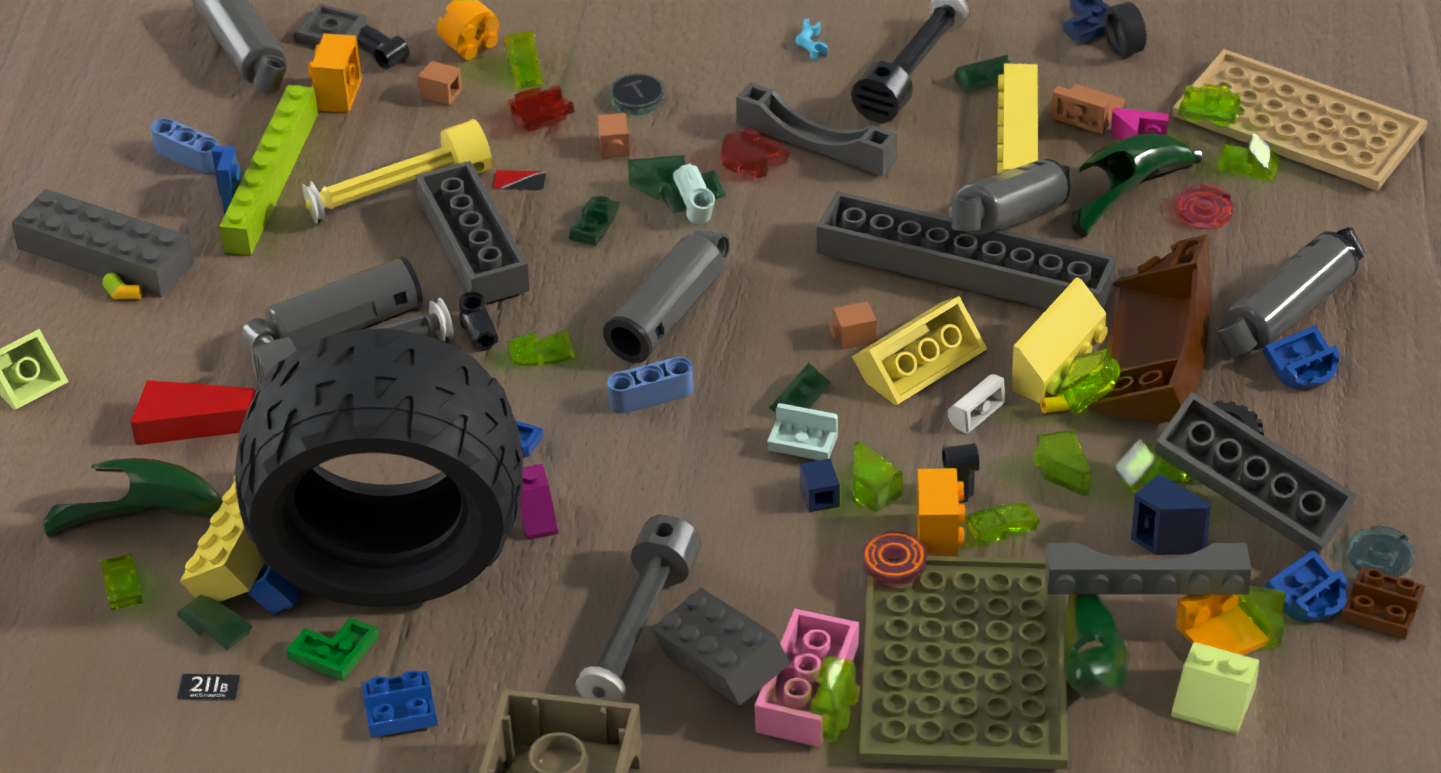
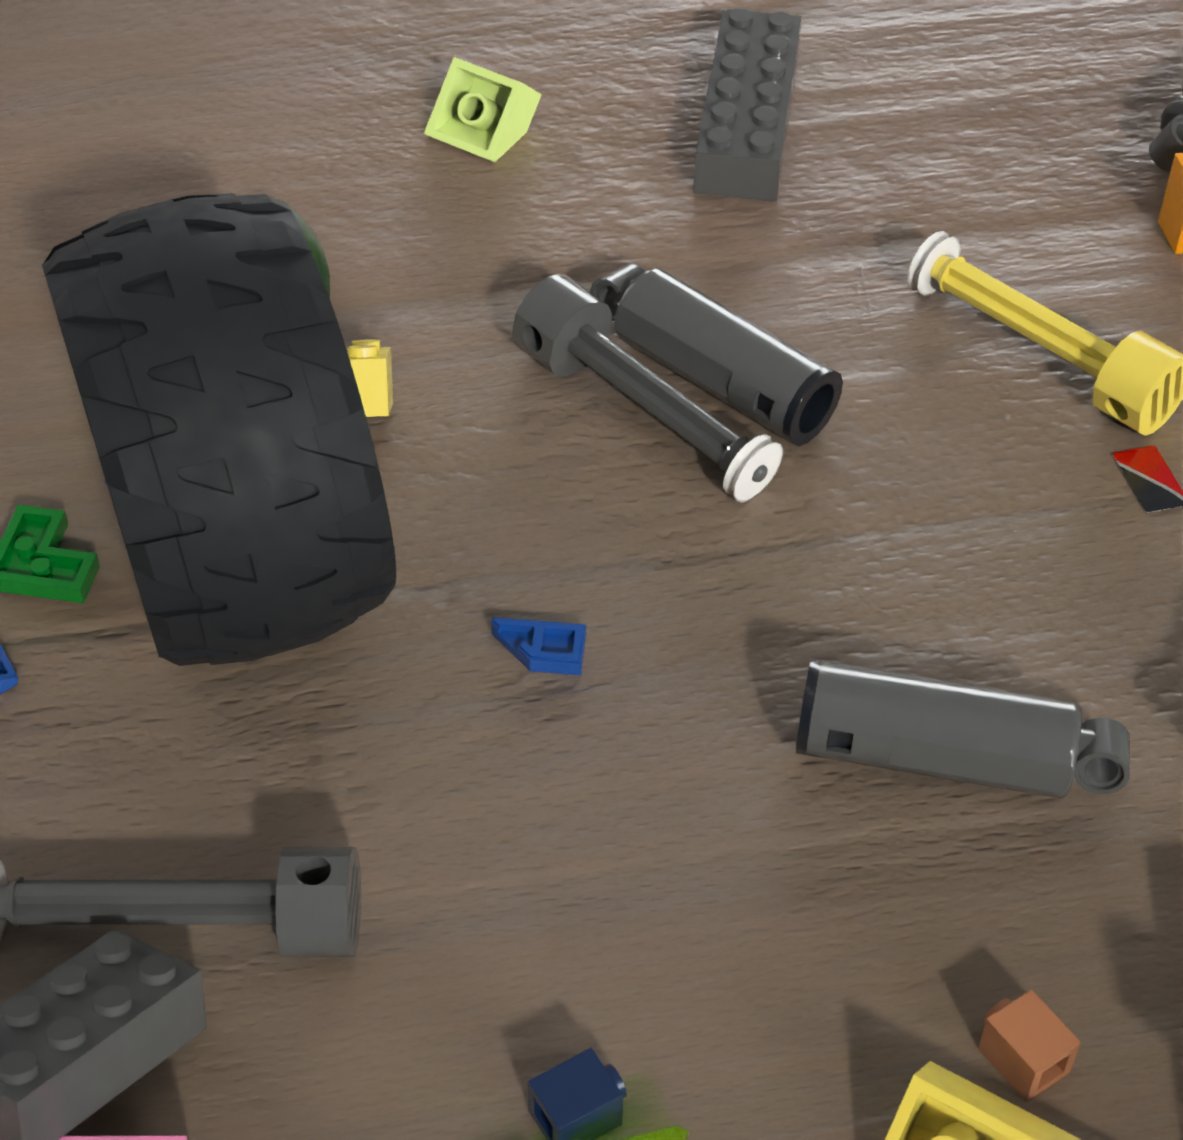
camera: 70 degrees right, 5 degrees up
(119, 290) = (677, 146): arm -> none
(183, 144) = (984, 118): medium blue beam -> none
(188, 411) = (462, 275): red slope -> none
(216, 619) = (59, 425): clear green slope -> none
(226, 172) = (928, 163): blue slope -> none
(268, 170) = (985, 203): lime brick -> none
(472, 232) = (962, 447): dark grey brick -> none
(476, 321) = (789, 510): black piece -> none
(532, 351) = (763, 613): clear neon green slope -> none
(536, 504) = (402, 698): magenta slope -> none
(594, 221) = (1113, 594): clear green slope -> none
(650, 384) = (733, 775): medium blue beam -> none
(803, 389) = (821, 1011): clear green slope -> none
(803, 432) = (696, 1041): light aqua bracket -> none

